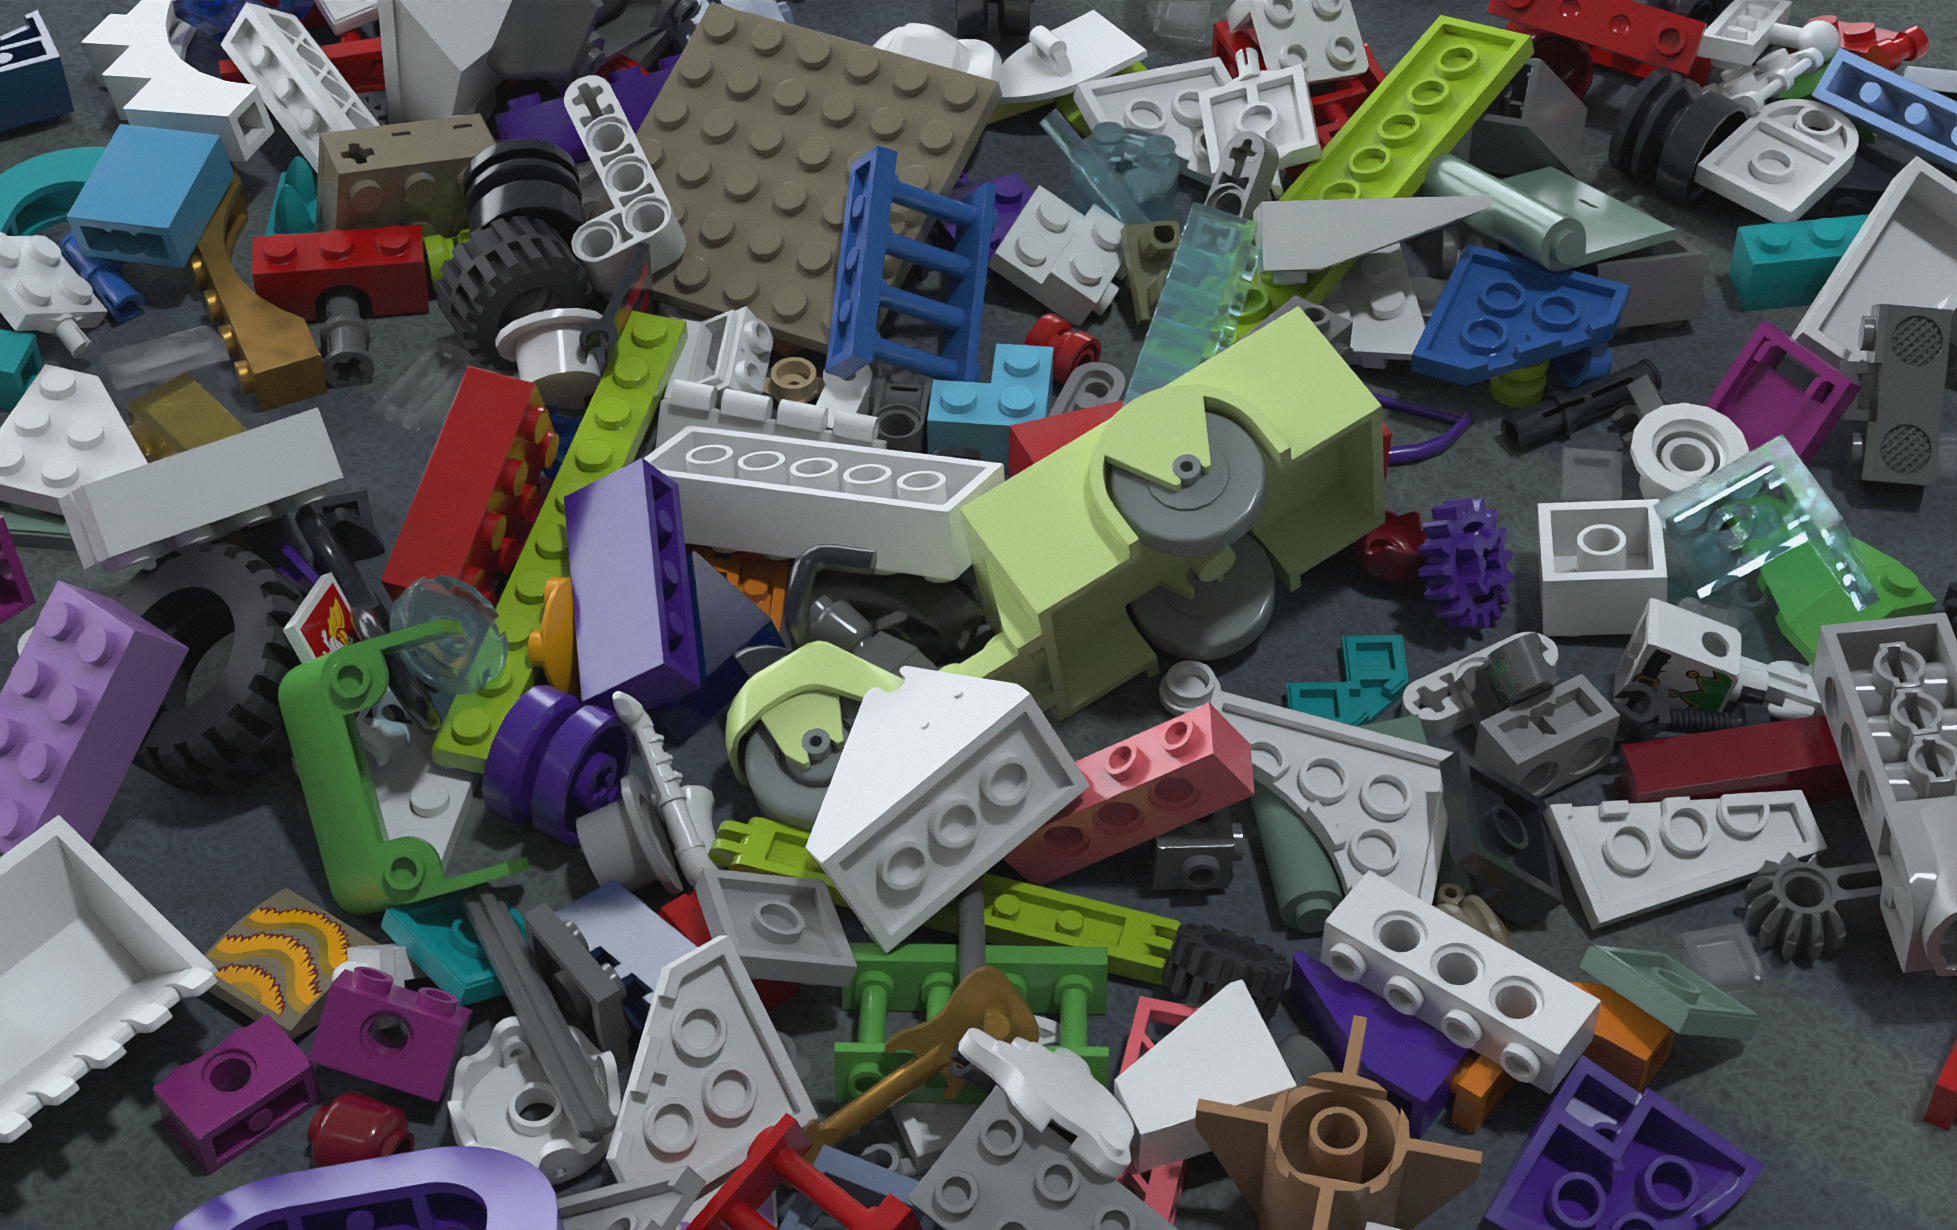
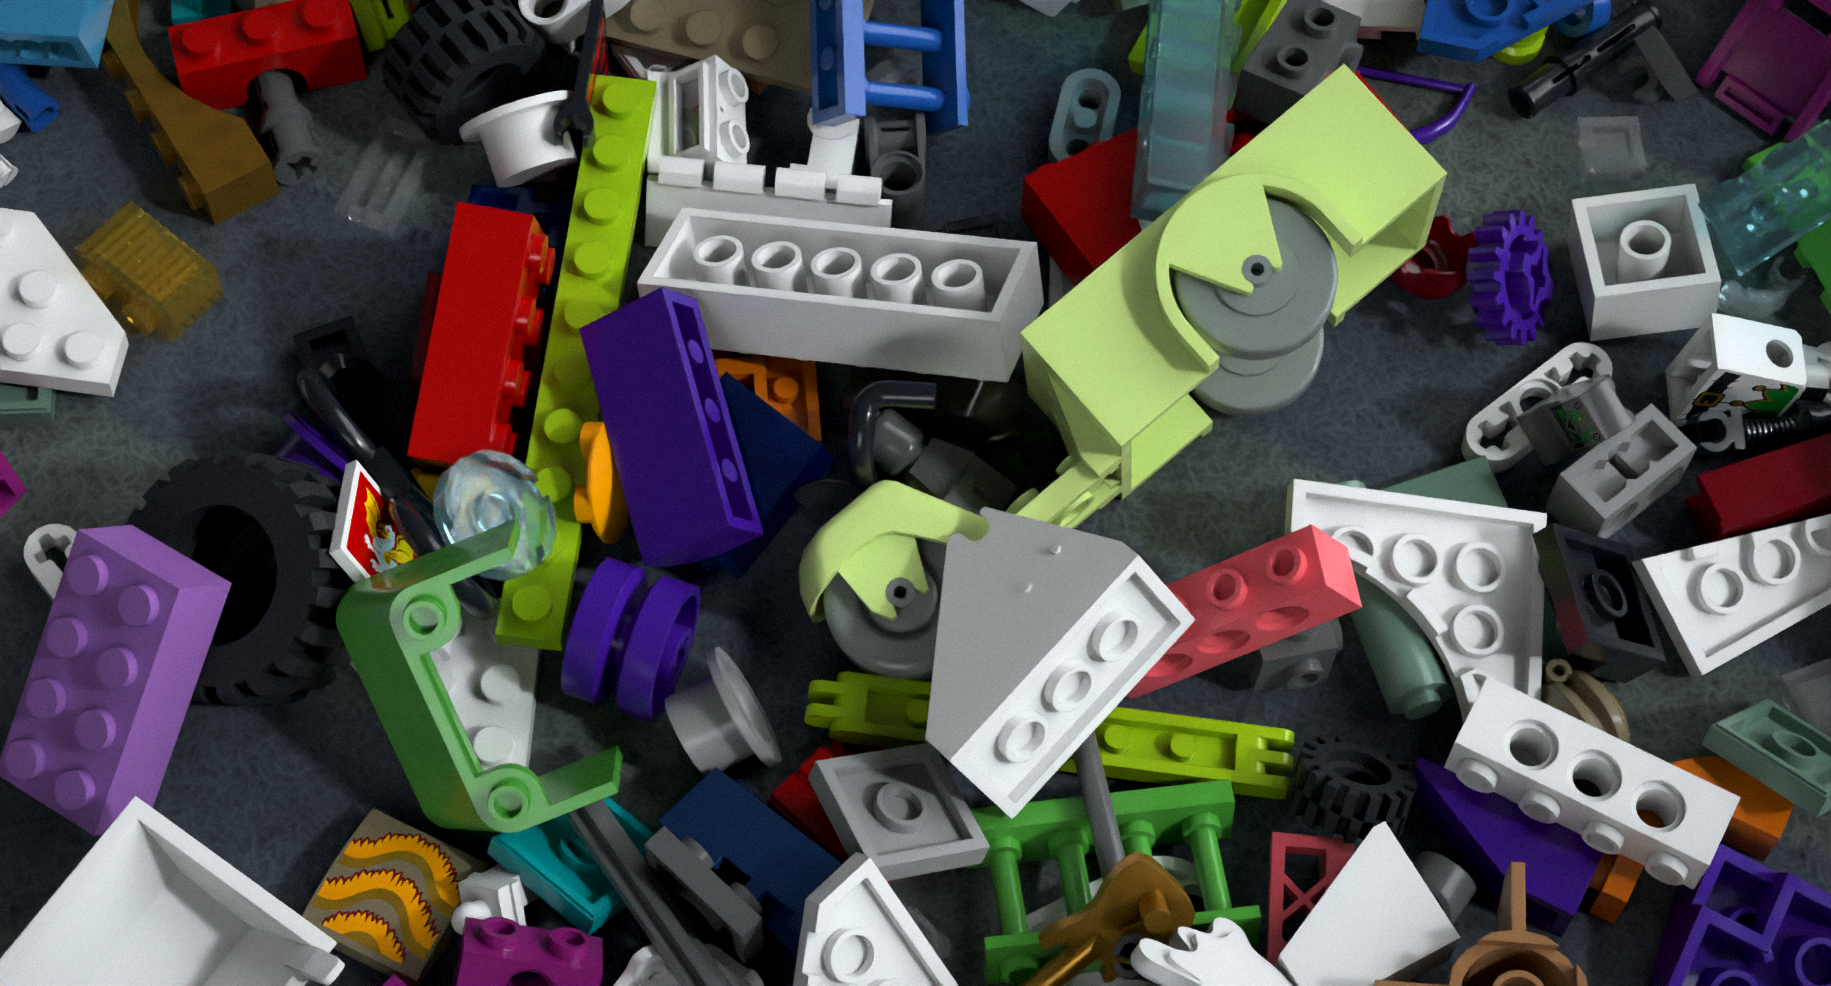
camera: 10 degrees left, 15 degrees up
(163, 357) = (99, 180): clear plate -> none
(202, 493) = (176, 400): white piece -> none
(685, 808) = (765, 664): white piece -> none
(793, 381) = (780, 115): tan plate -> none
(982, 413) = (986, 158): medium azure brick -> none
(1069, 348) = (1045, 56): red wheel -> none
(1187, 687) = (1249, 452): white plate -> none
(1373, 682) = (1429, 416): teal tile -> none
(1682, 446) = (1709, 118): white piece -> none

